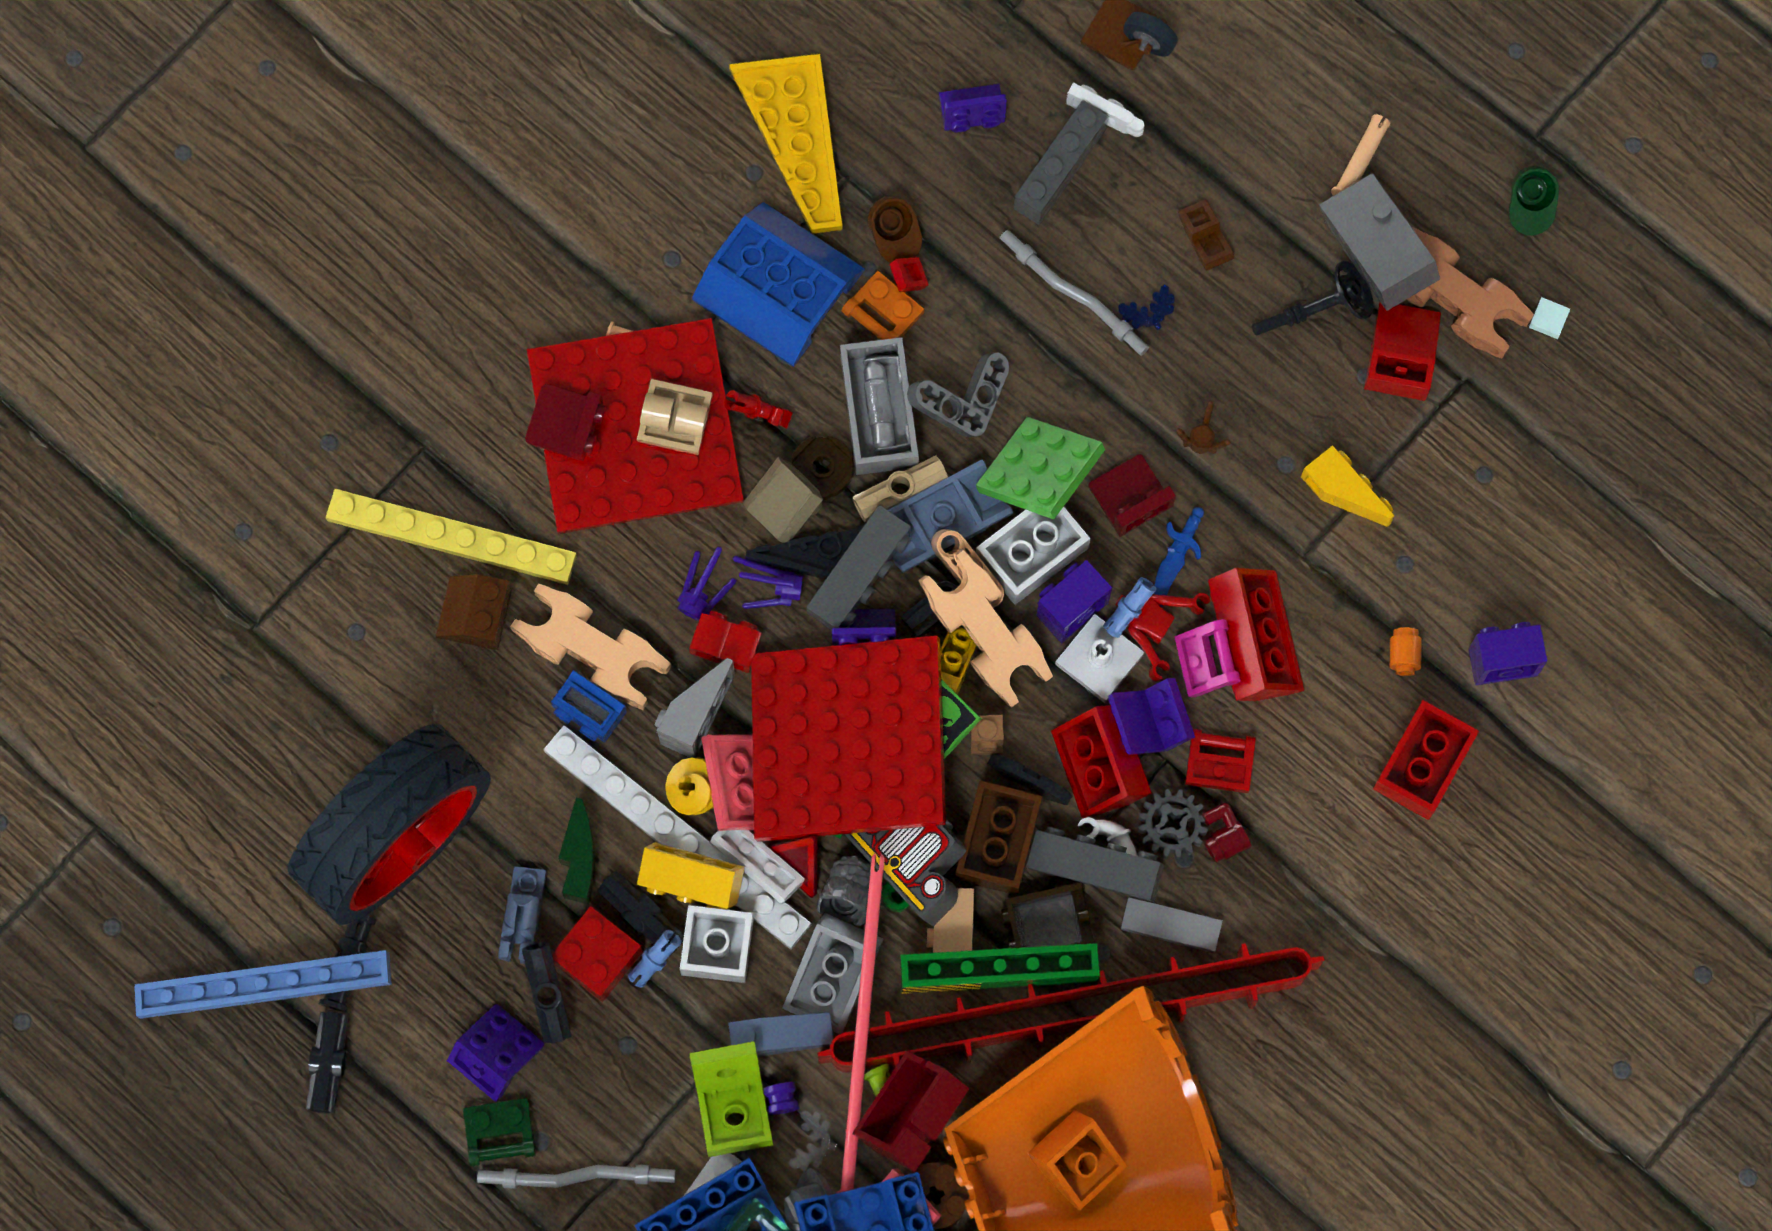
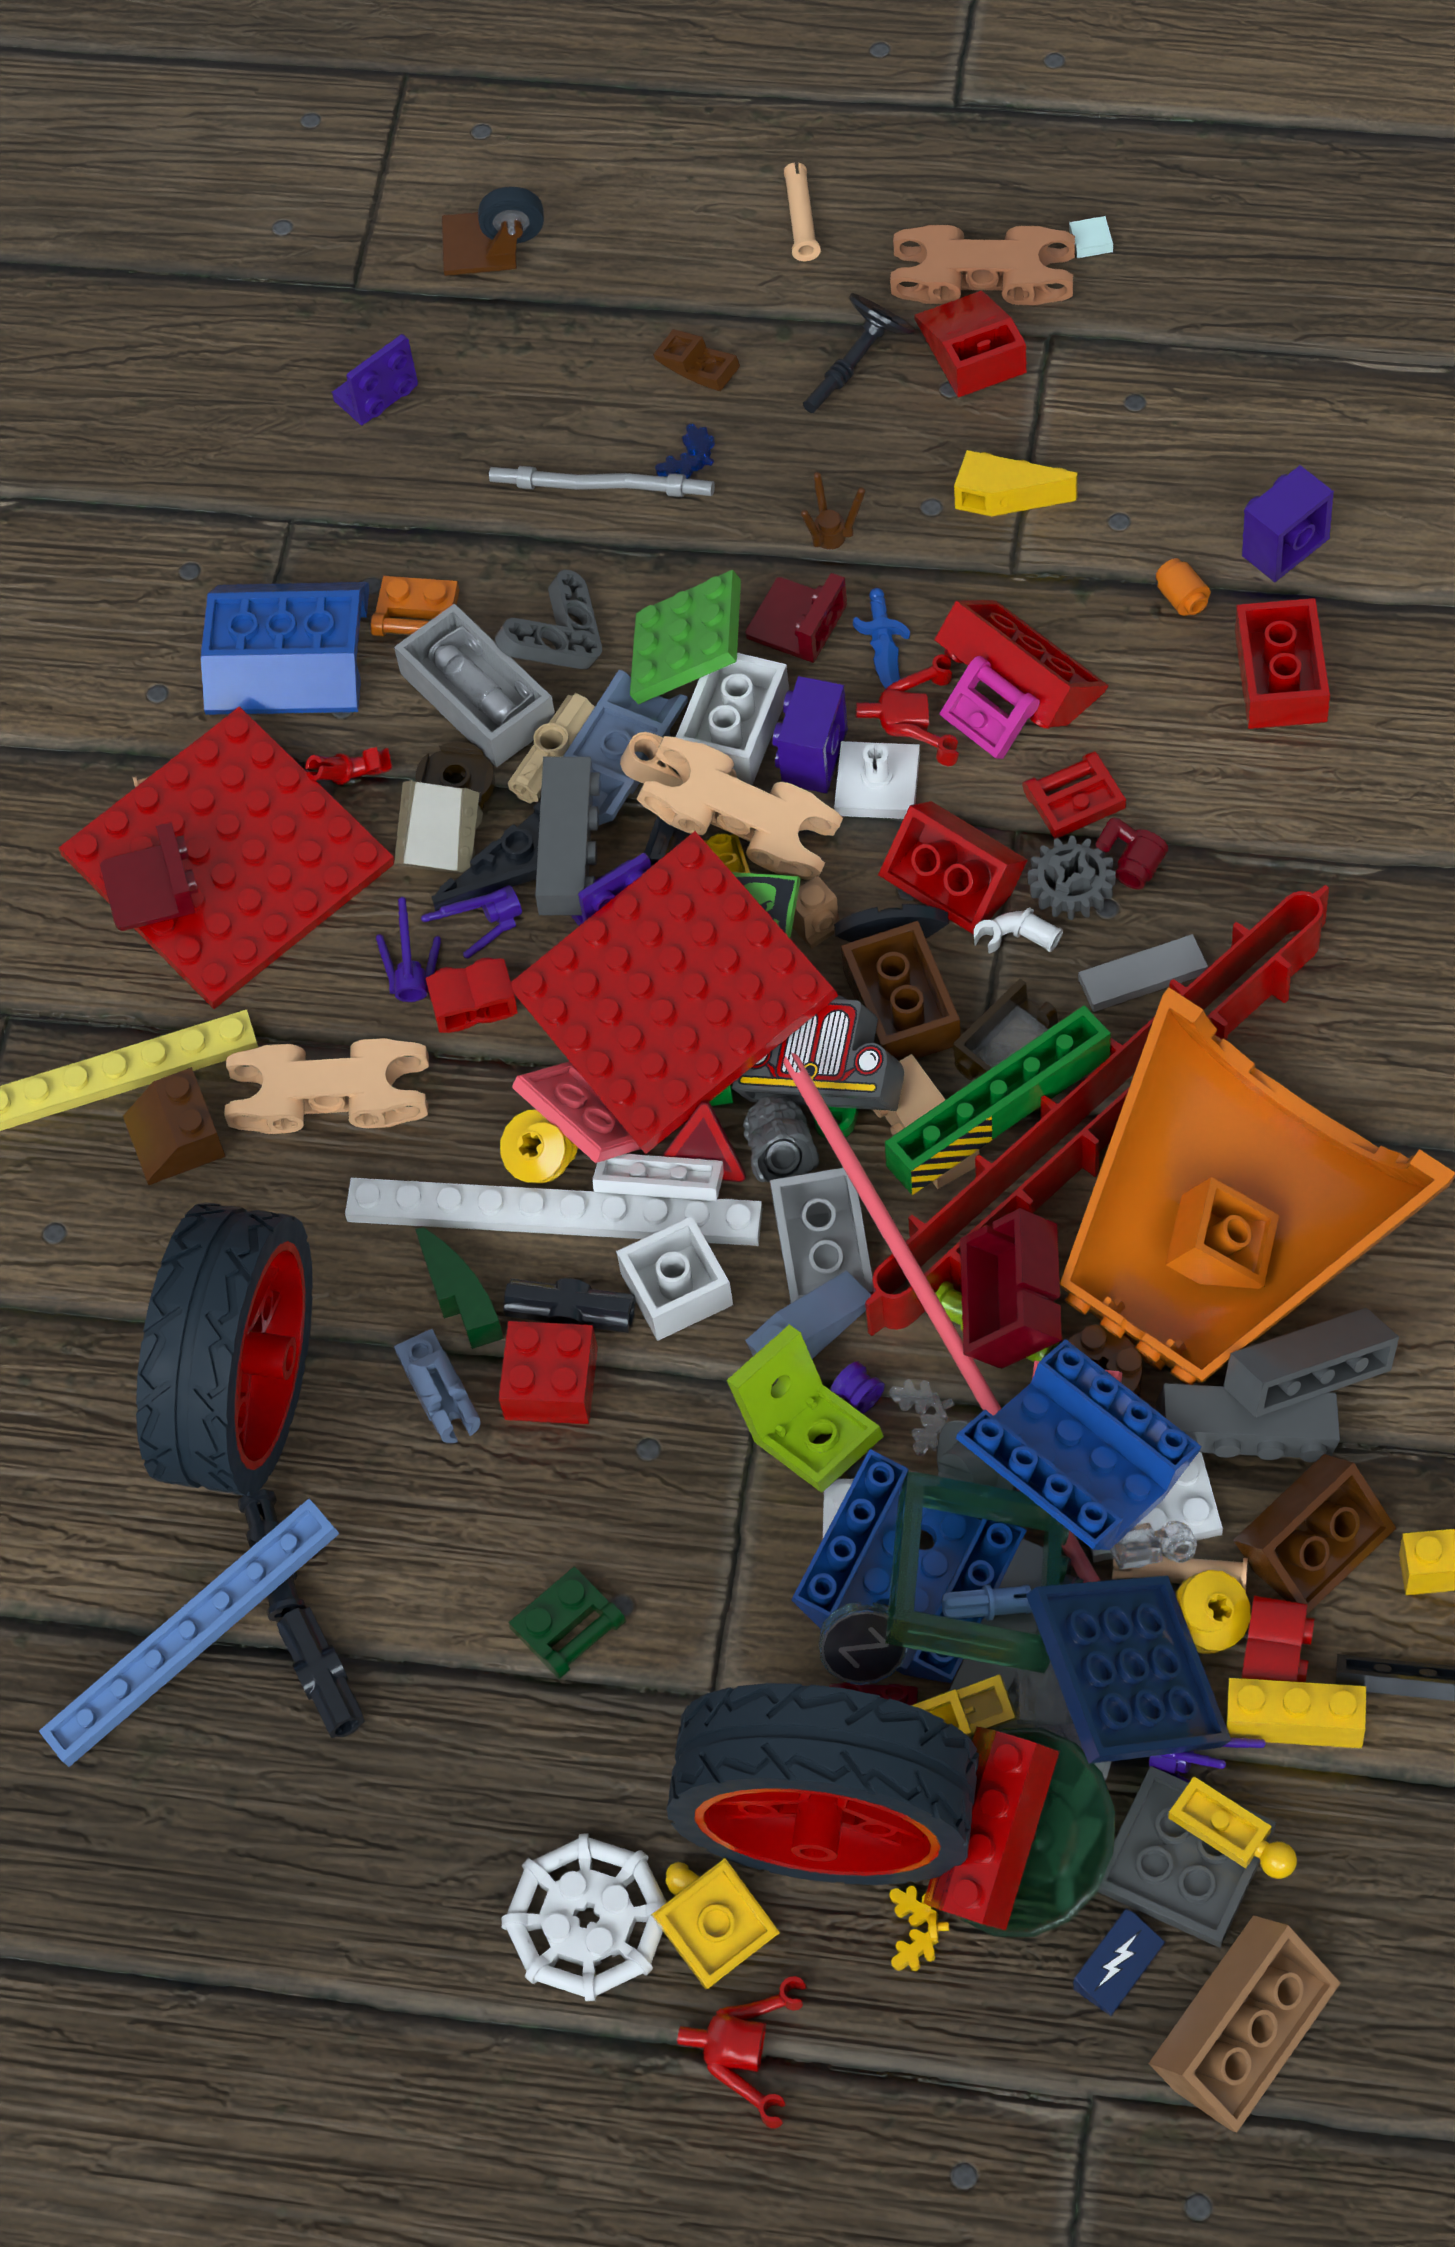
camera: 25 degrees left, 15 degrees down
(494, 1051) = (503, 1545): dark purple bracket -> none
(512, 1177) = (616, 1660): light grey bar -> none
(551, 1010) = (500, 1417): black piece -> none
(588, 707) = (366, 1143): blue window -> none
(654, 958) = (616, 1333): medium blue pin -> none
(674, 416) = (265, 811): tan plate -> none
(690, 876) = (596, 1229): yellow brick -> none
(694, 711) = (483, 1073): light grey slope -> none
(793, 118) = (201, 499): yellow wing -> none
(894, 228) = (375, 528): reddish brown cap -> none
(908, 274) = (418, 560): red plate -> none
(1060, 162) = (502, 378): dark grey brick -> none
(1095, 865) = (1033, 952): dark grey brick -> none
(1117, 116) = (513, 312): white hinge -> none
(1129, 607) = (874, 703): medium blue pin -> none
(1151, 718) = (977, 790): dark purple bracket -> none
(1379, 242) = (876, 254): dark grey brick -> none
(1533, 200) = (997, 148): dark green cap -> none

